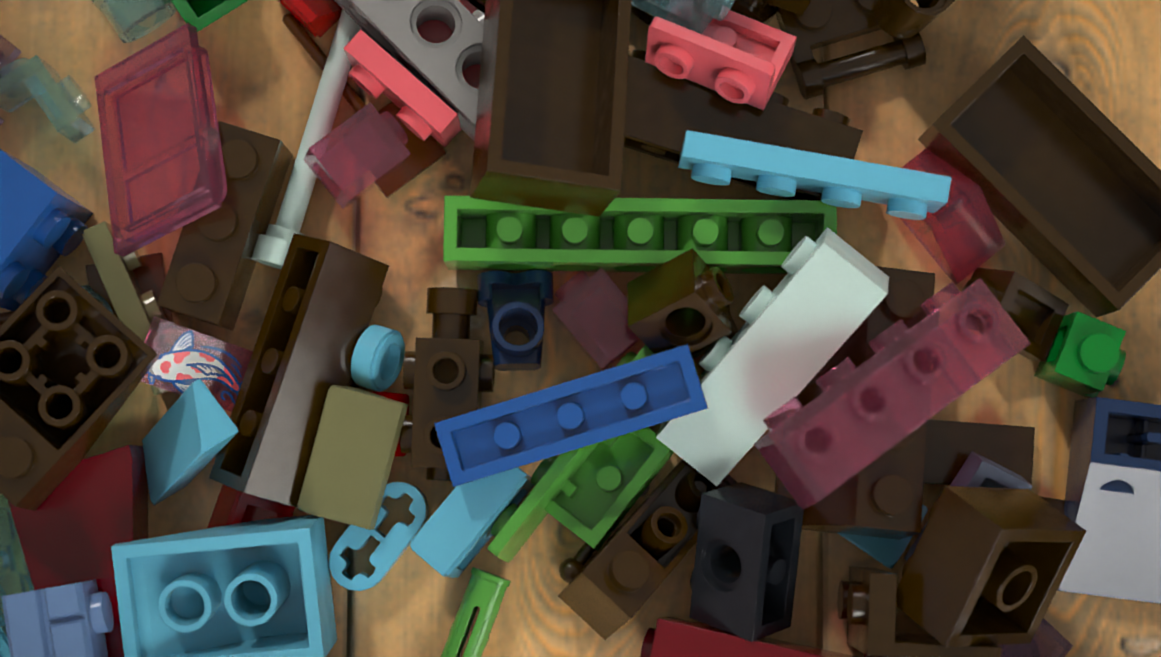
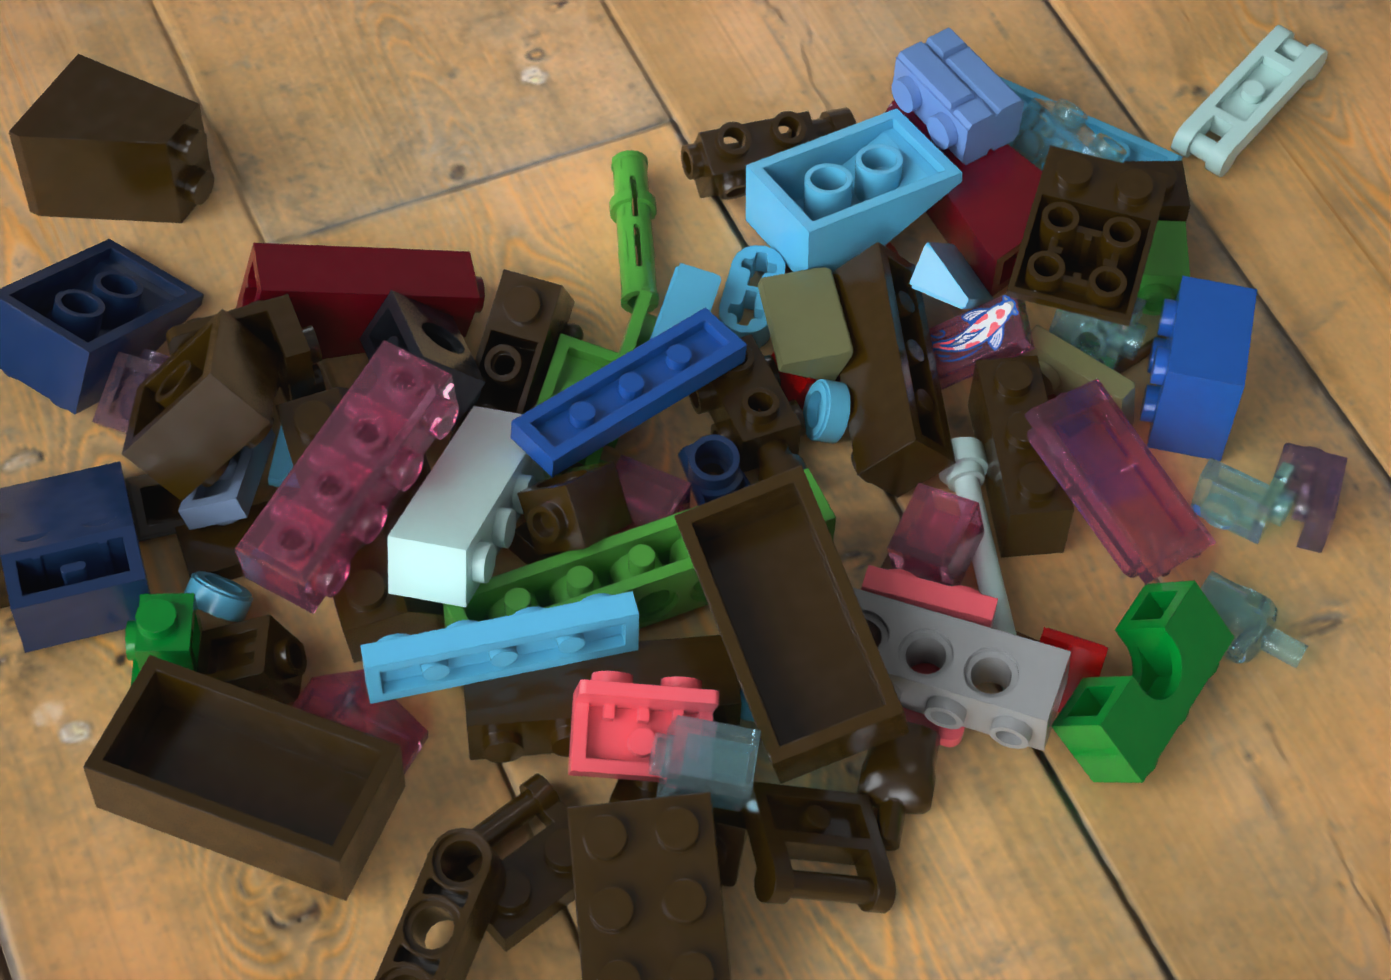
camera: 155 degrees right, 30 degrees down
(1019, 390) = (219, 596): none -> medium azure tile

